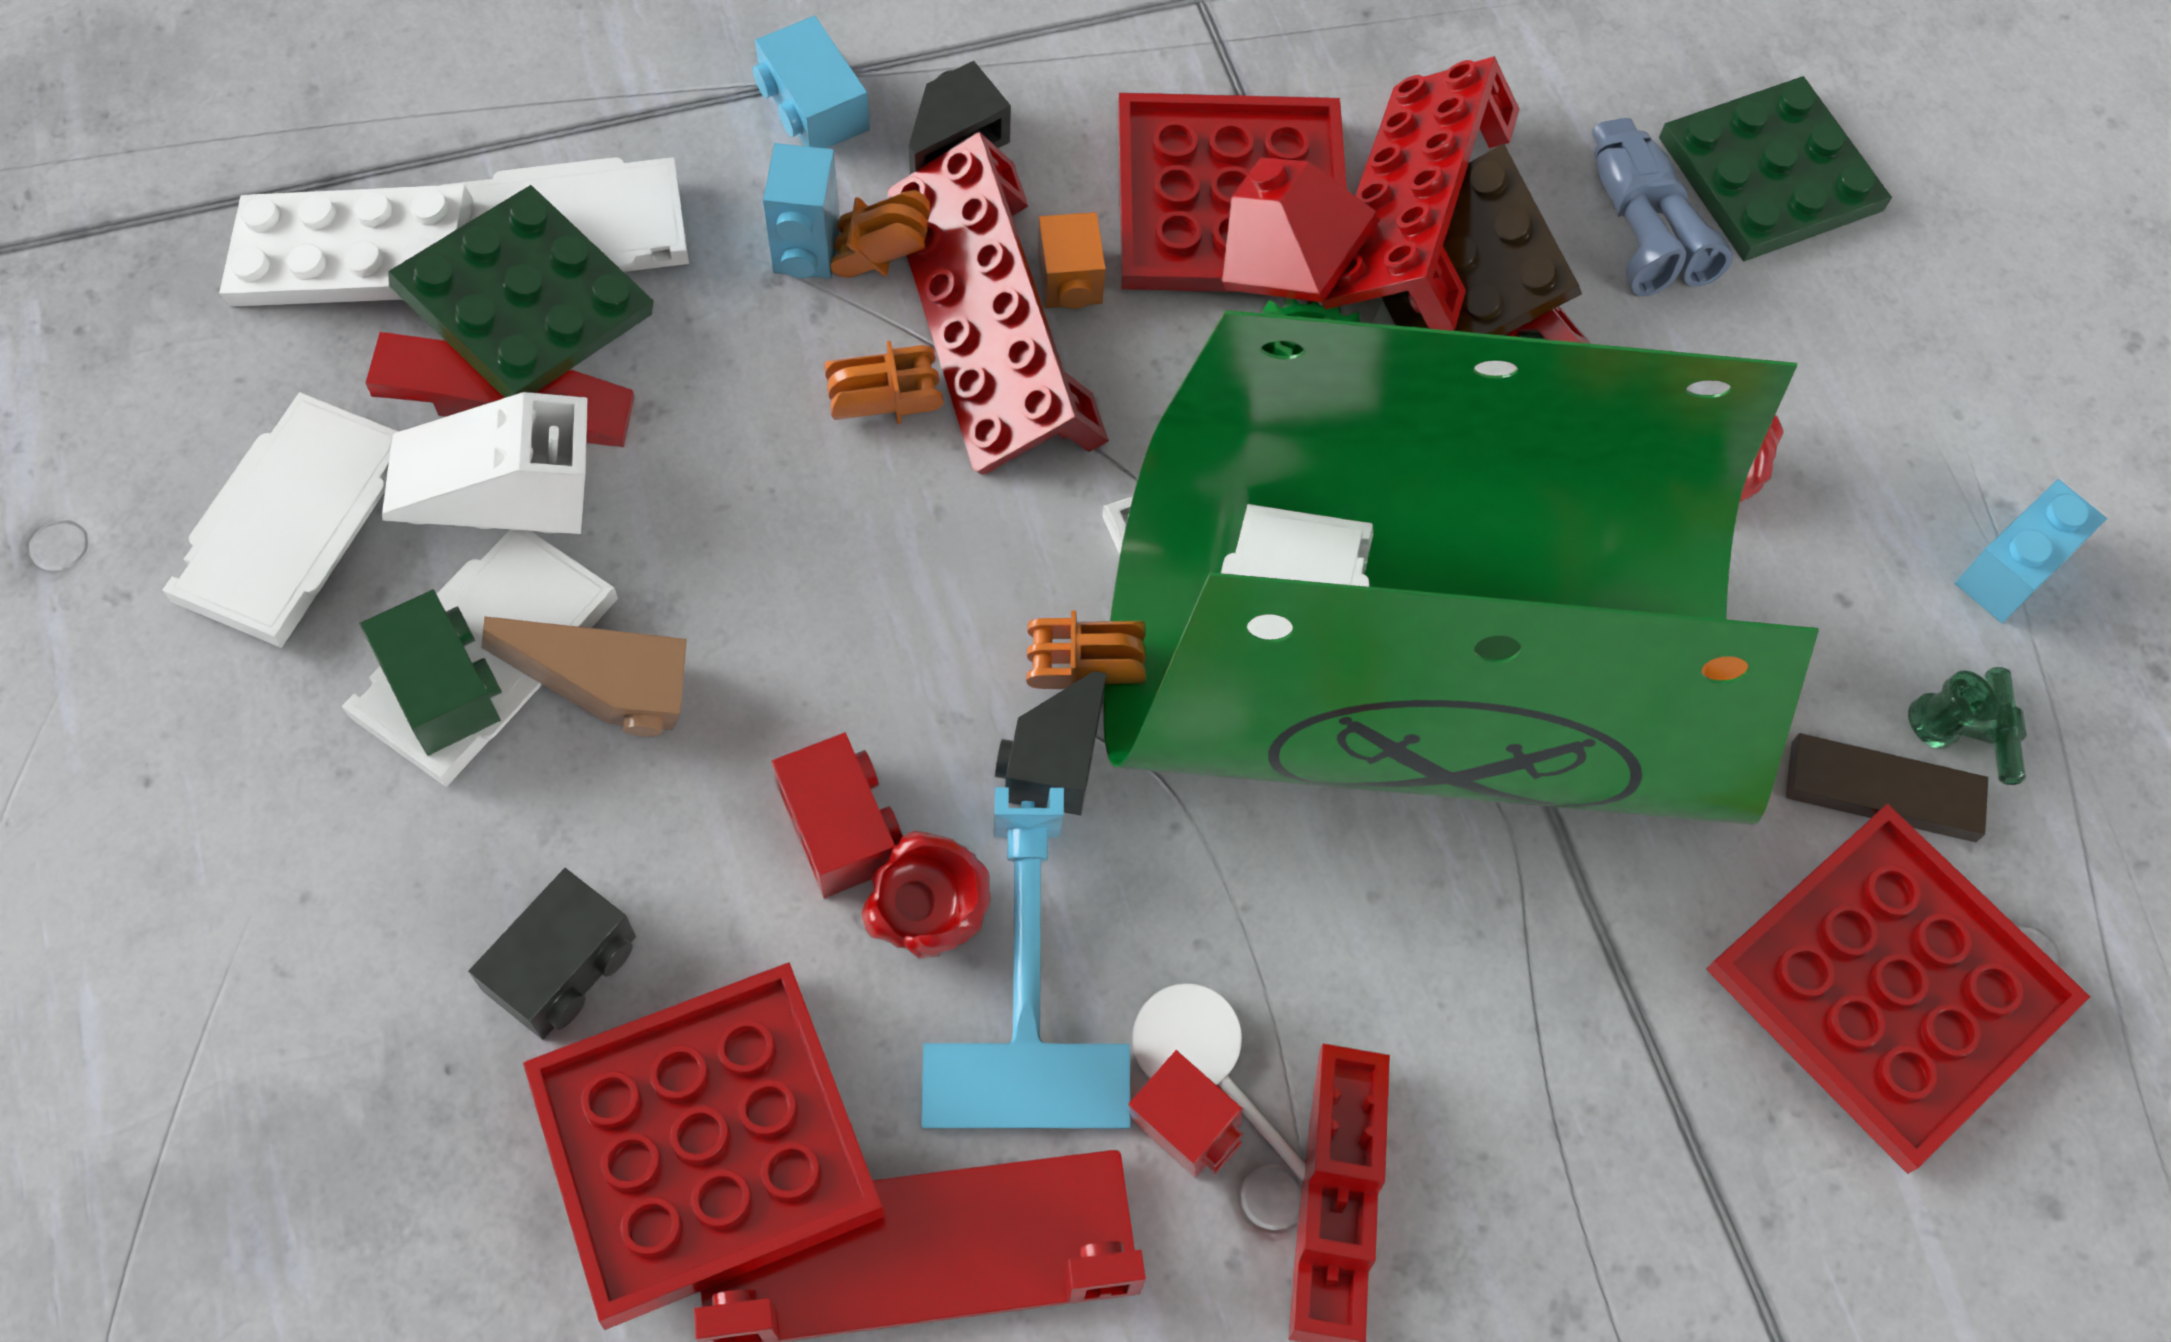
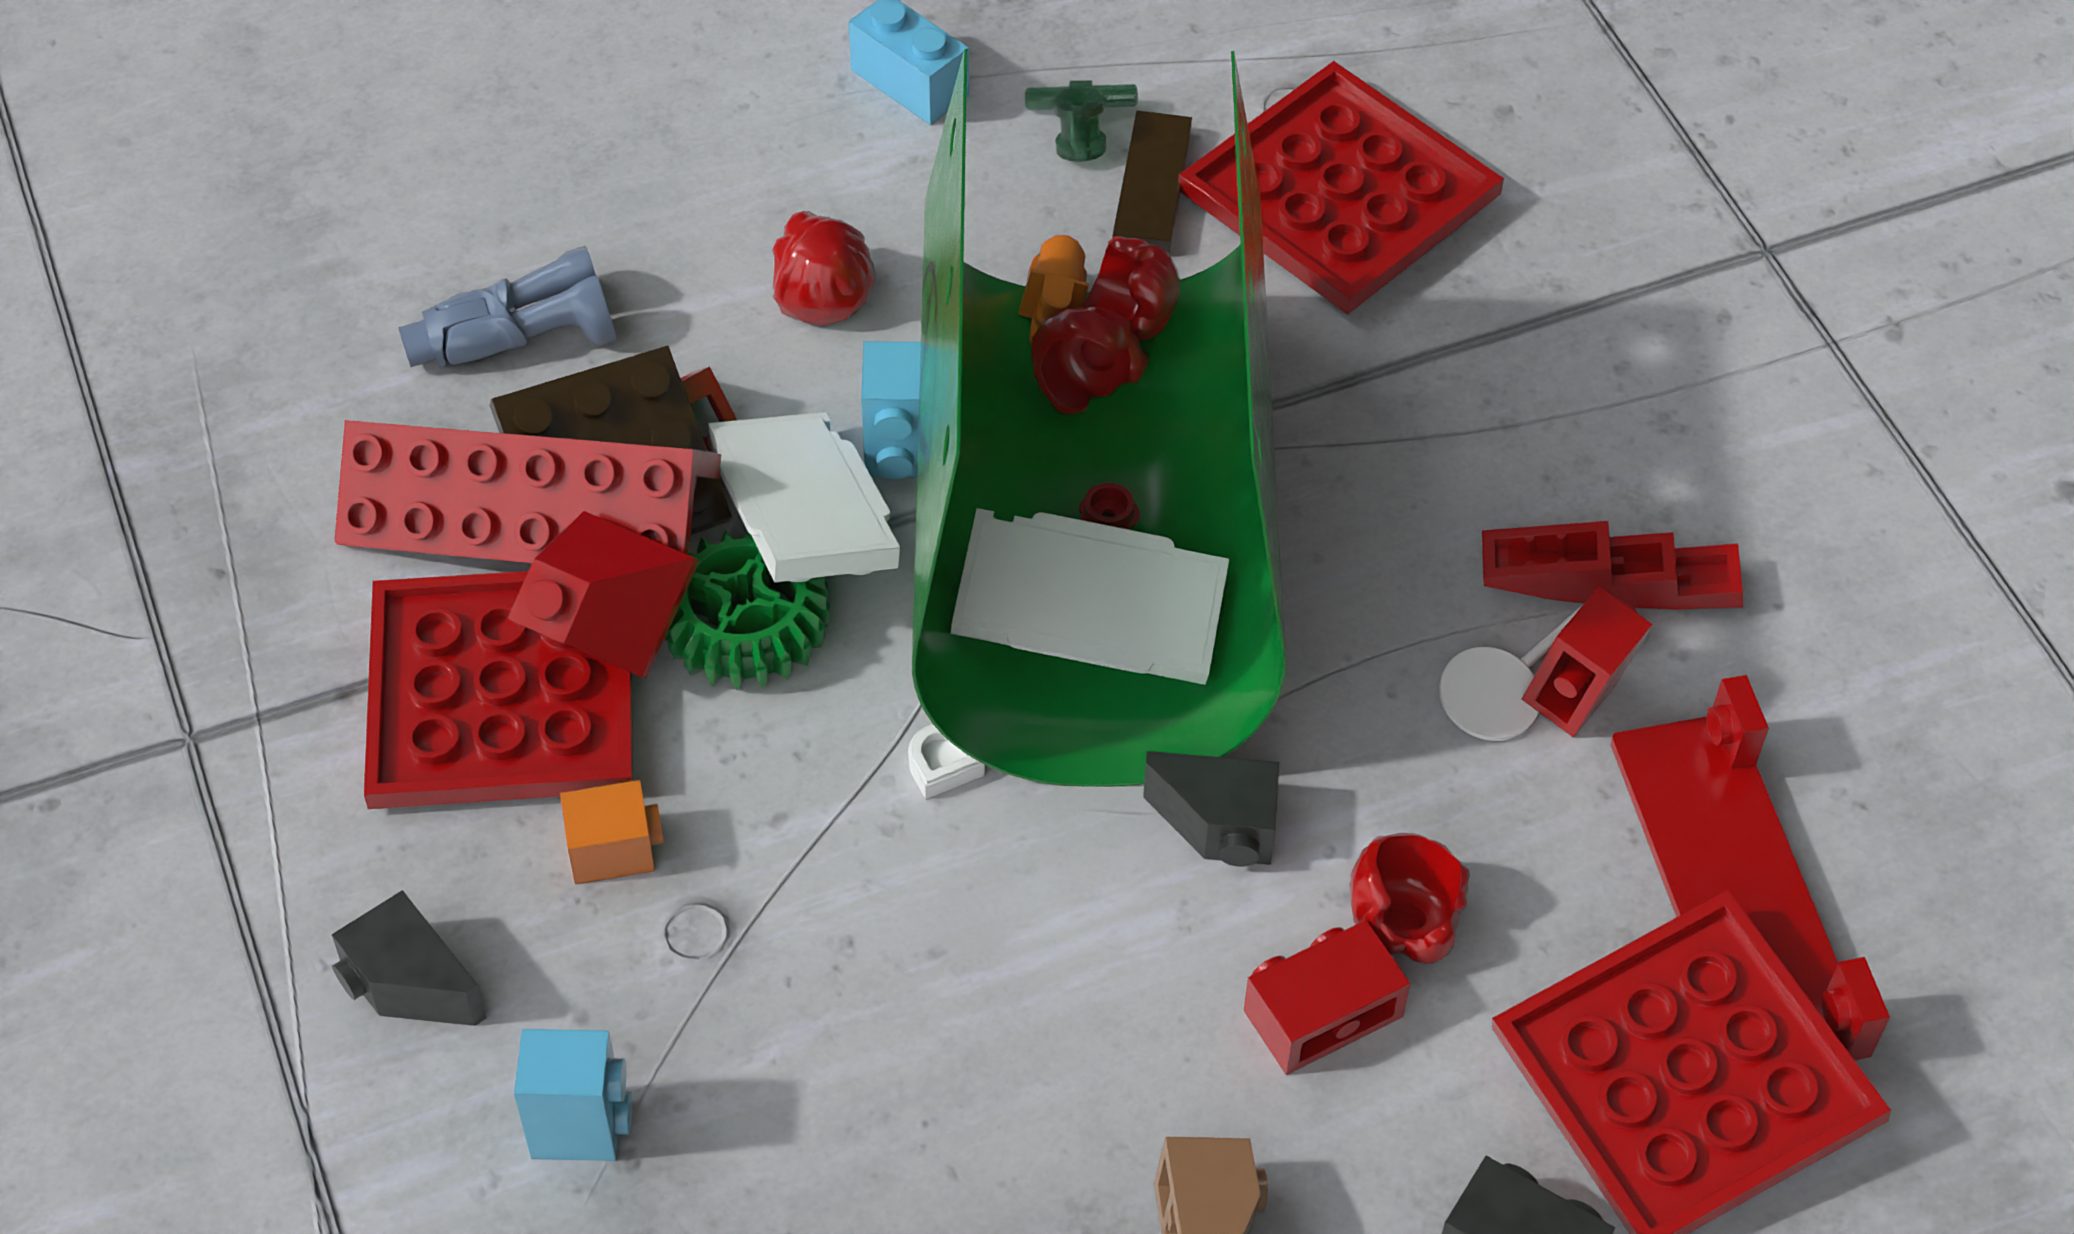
camera: 90 degrees left, 10 degrees down
(811, 84) = (345, 1130): medium azure brick -> none
(880, 233) = (585, 998): orange arm -> none
(884, 383) = (789, 999): orange arm -> none
(989, 313) = (670, 915): bracket -> none
(1026, 1079) = (1556, 811): medium azure piece -> none
(1094, 646) = (1109, 792): orange arm -> none
(1774, 168) = (451, 221): dark green plate -> none

